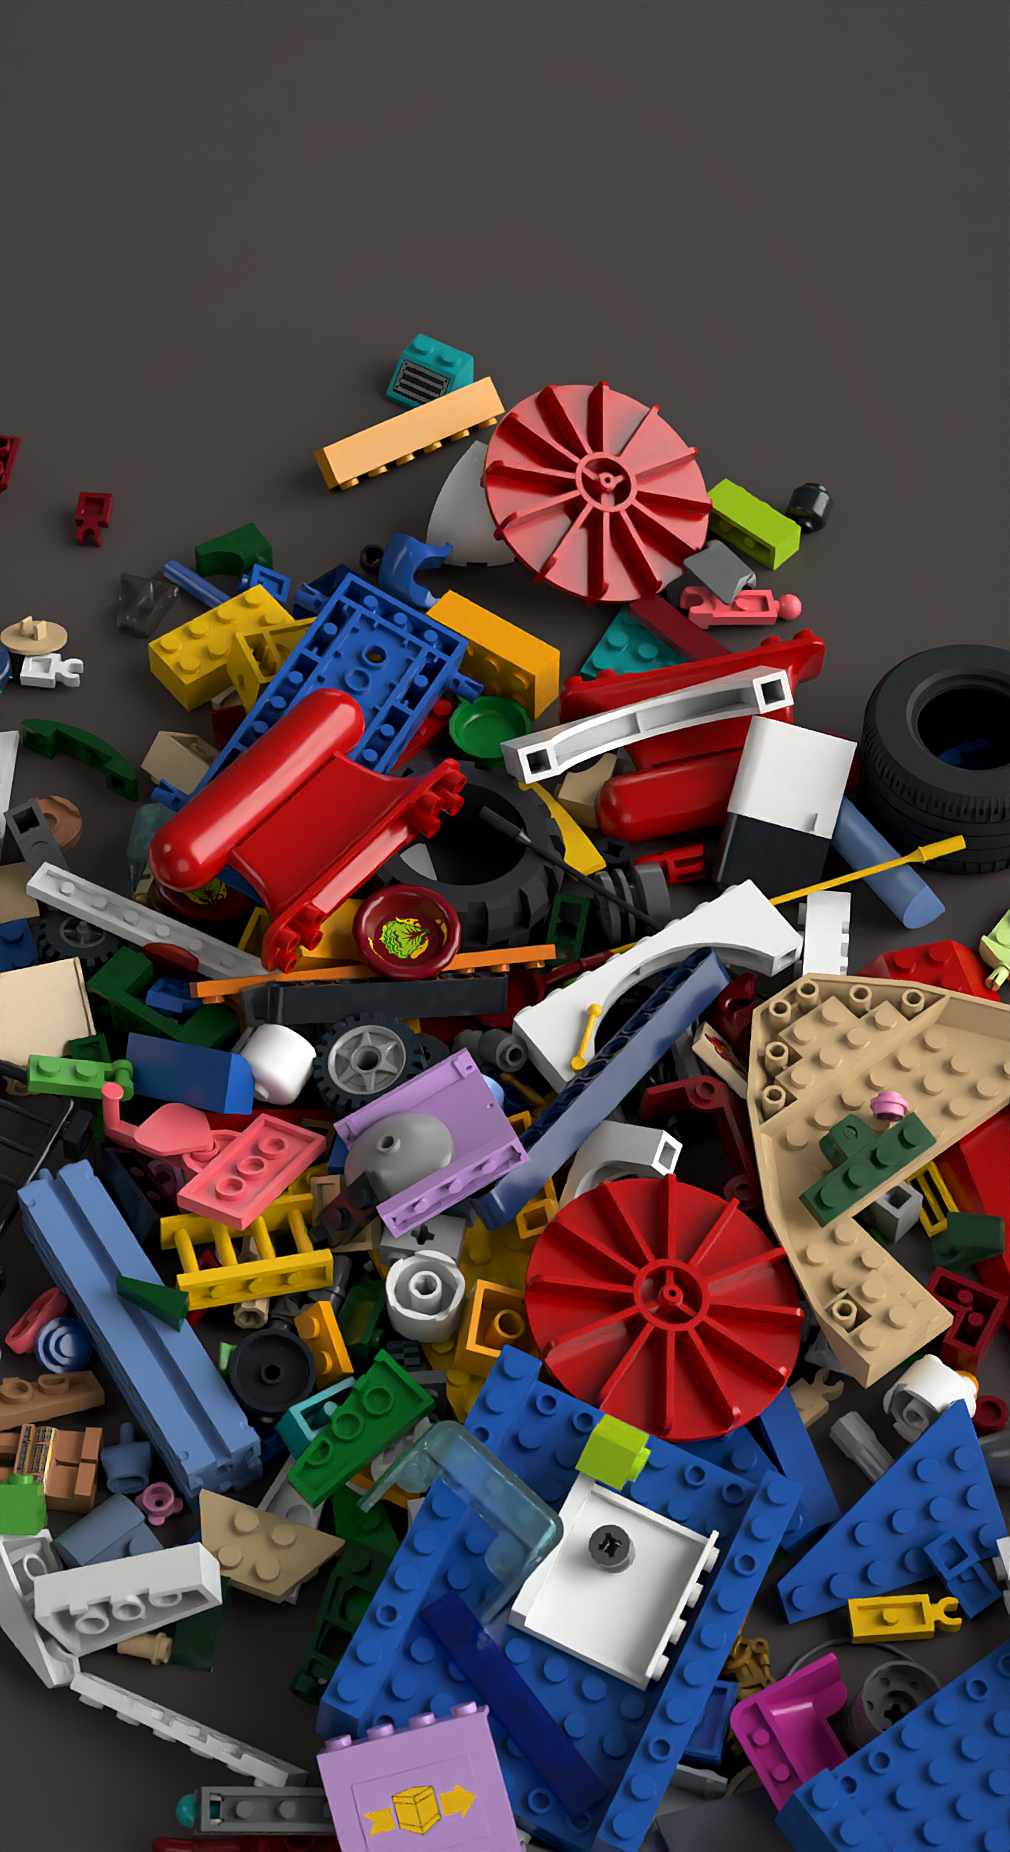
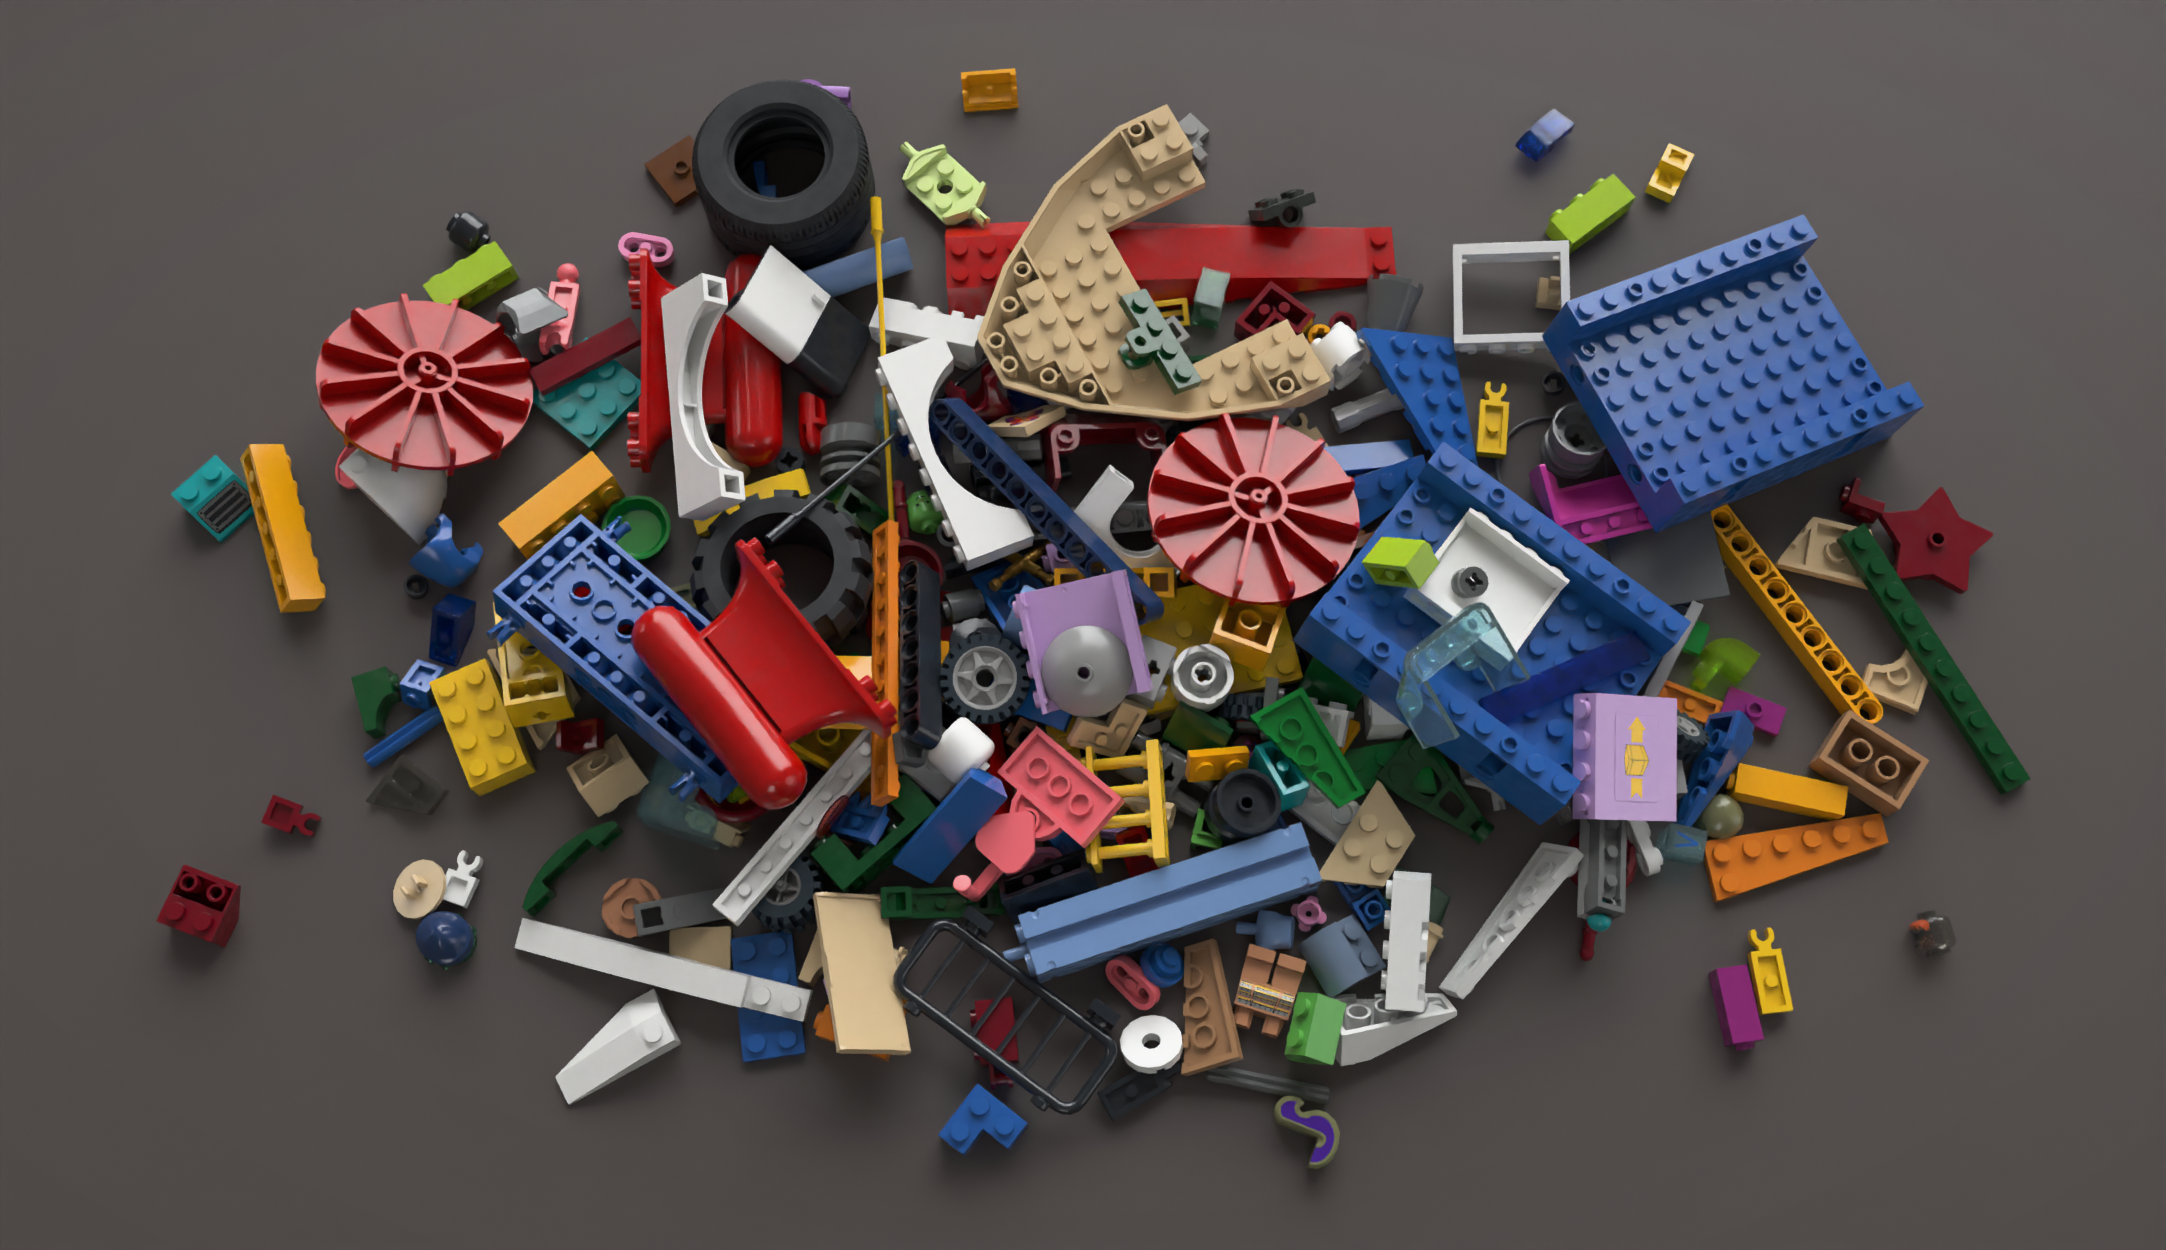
camera: 75 degrees left, 20 degrees up
(77, 1077) = (928, 911): bright green plate -> none
(160, 1301) = (1173, 873): dark green piece -> none
(348, 1212) = (1120, 718): black hinge -> none
(406, 932) = (872, 622): dark red piece -> none
(503, 1050) = (980, 579): dark grey brick -> none
(578, 1062) = (1021, 522): yellow hinge -> none
(843, 677) = (652, 243): none -> bright pink plate
(888, 1106) = (1110, 312): bright pink plate -> none
(961, 1573) = (1471, 372): blue slope -> none

